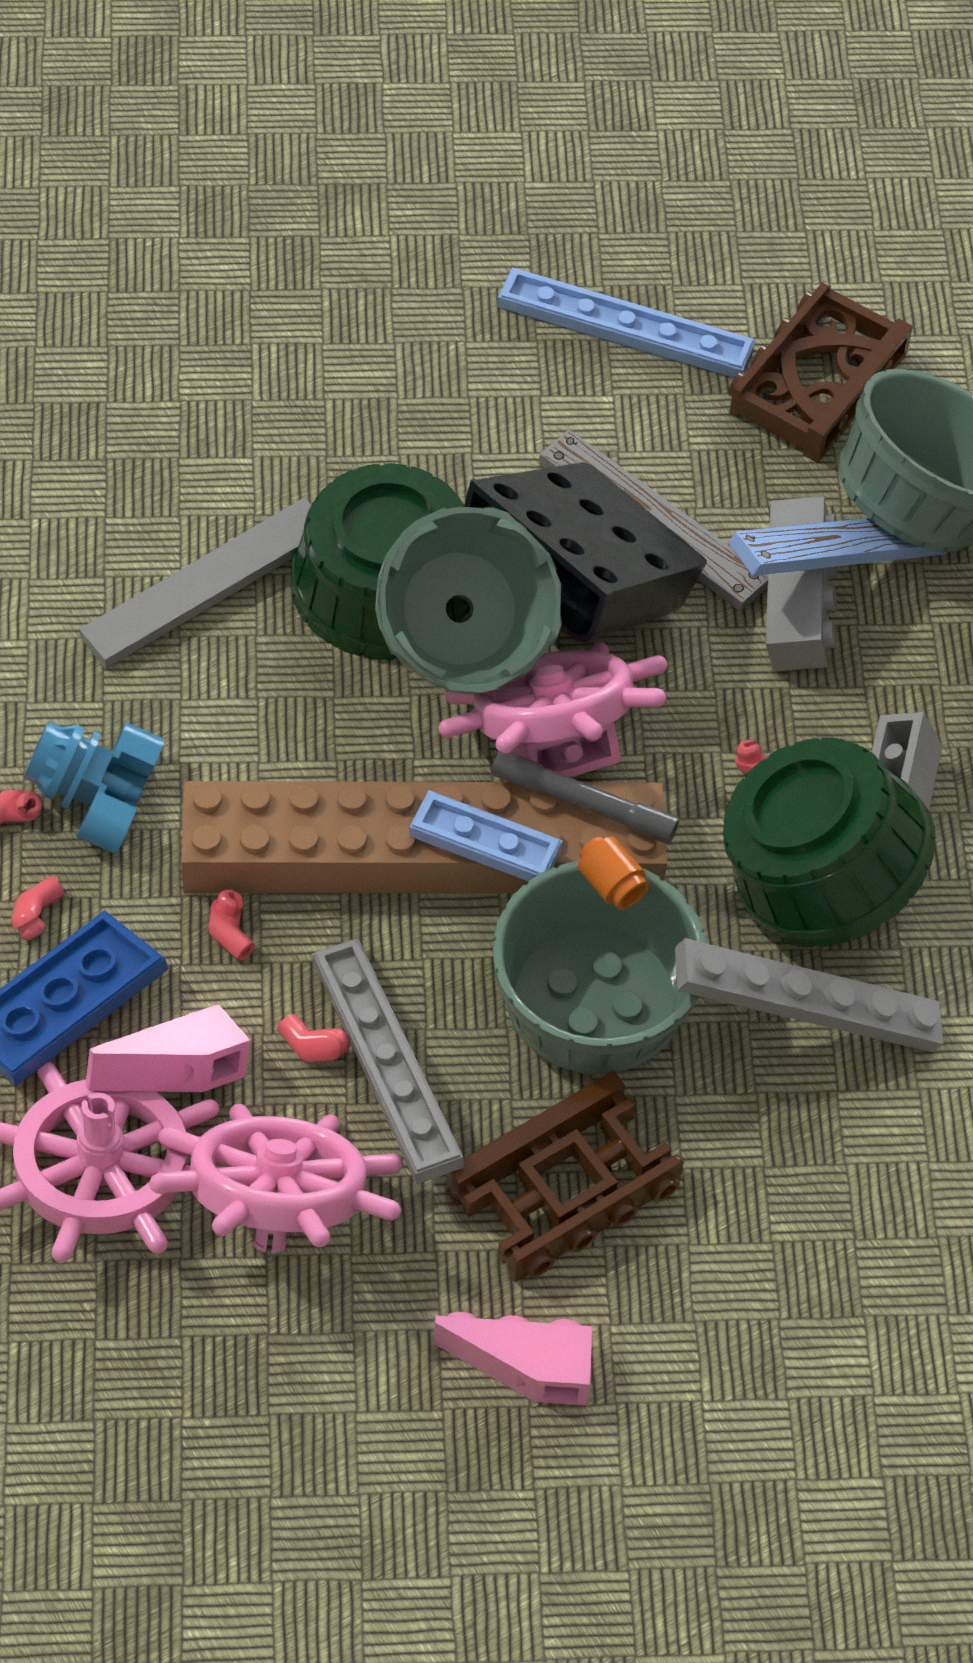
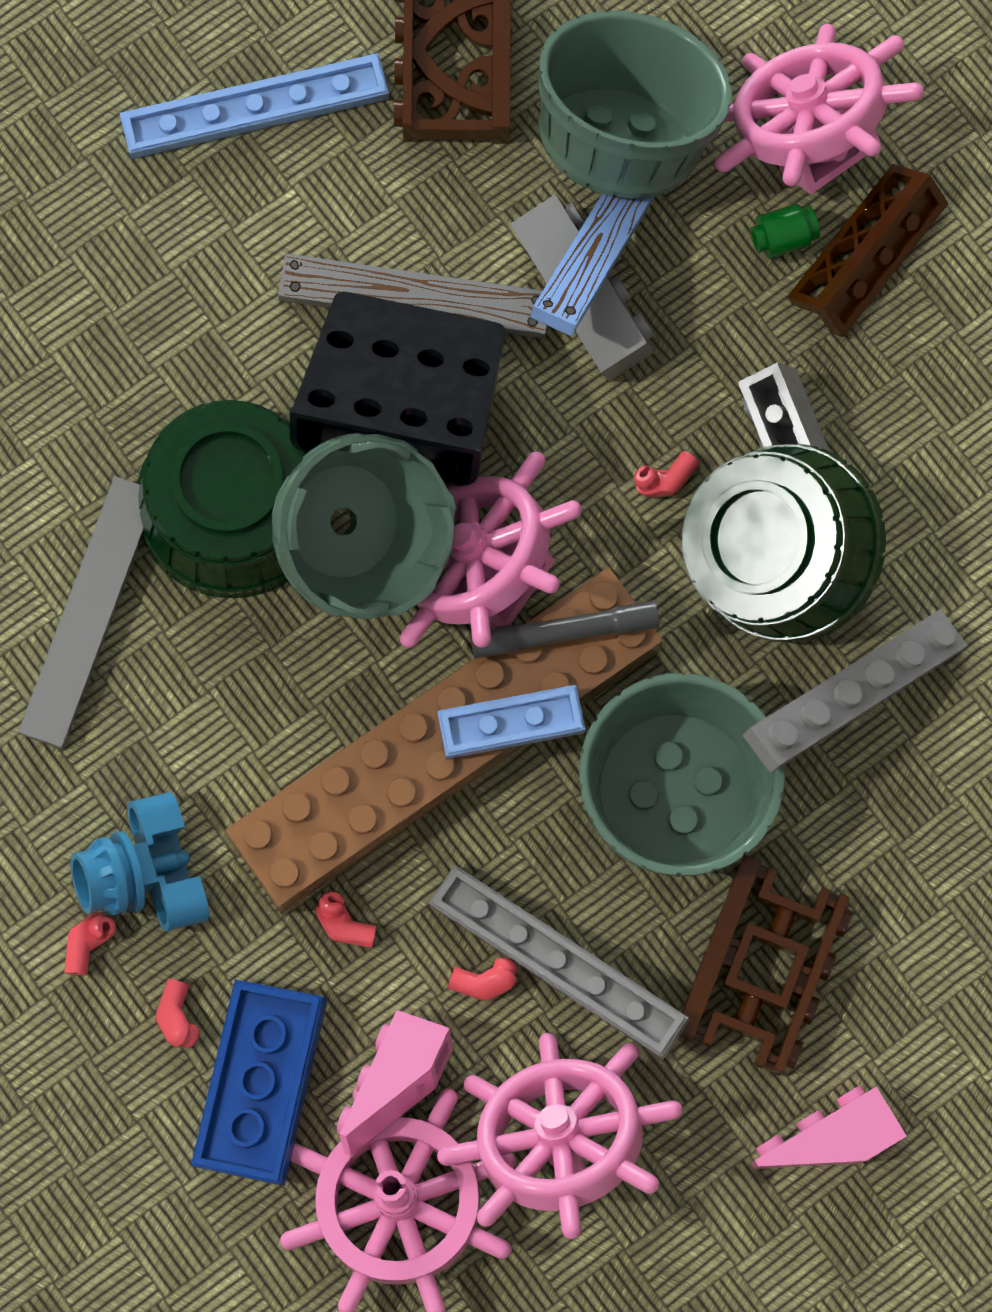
camera: 35 degrees left, 20 degrees up
(612, 872) = (650, 702): orange brick -> none

